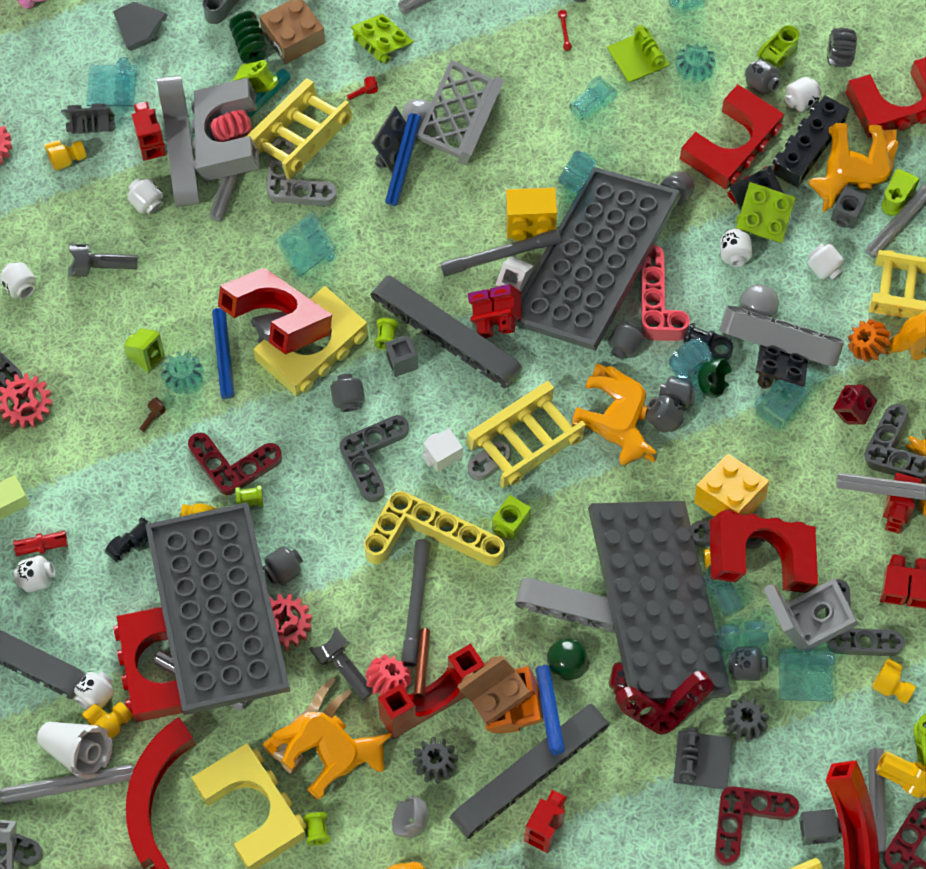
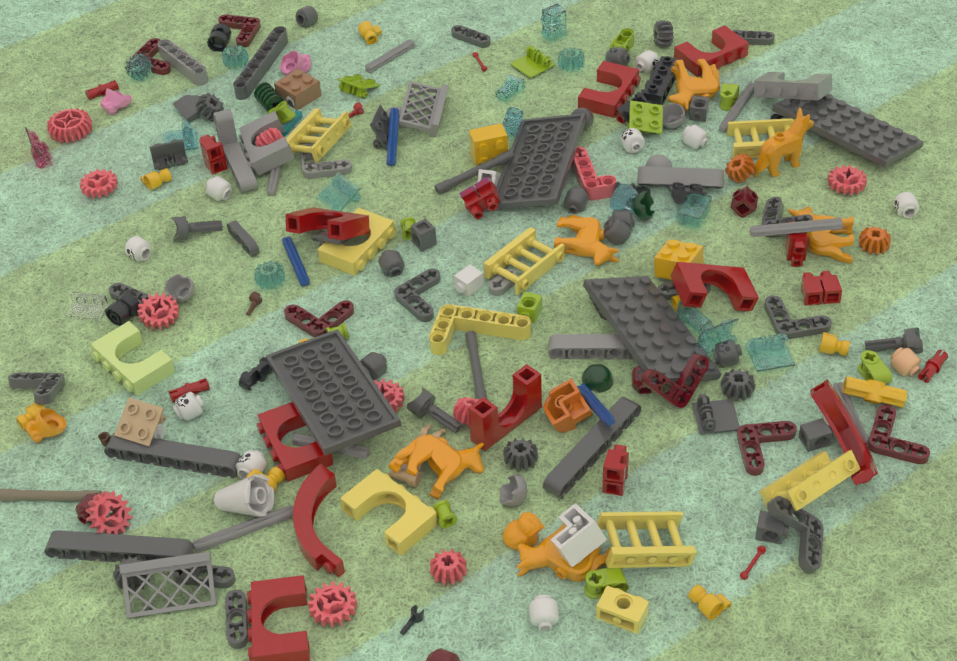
camera: 10 degrees left, 20 degrees down
(56, 363) = (180, 288): none -> light grey hair
(145, 348) = (240, 265): lime slope -> none
(160, 295) = (243, 238): none -> dark grey beam
(162, 36) = (207, 105): none -> dark grey gear
(422, 660) = (491, 395): copper piece -> none
(446, 330) = (451, 218): dark grey beam -> none
(494, 689) = (551, 393): medium nougat bracket -> none
(800, 618) = (754, 317): light grey bracket -> none
(810, 211) = (673, 116): none -> light grey hair

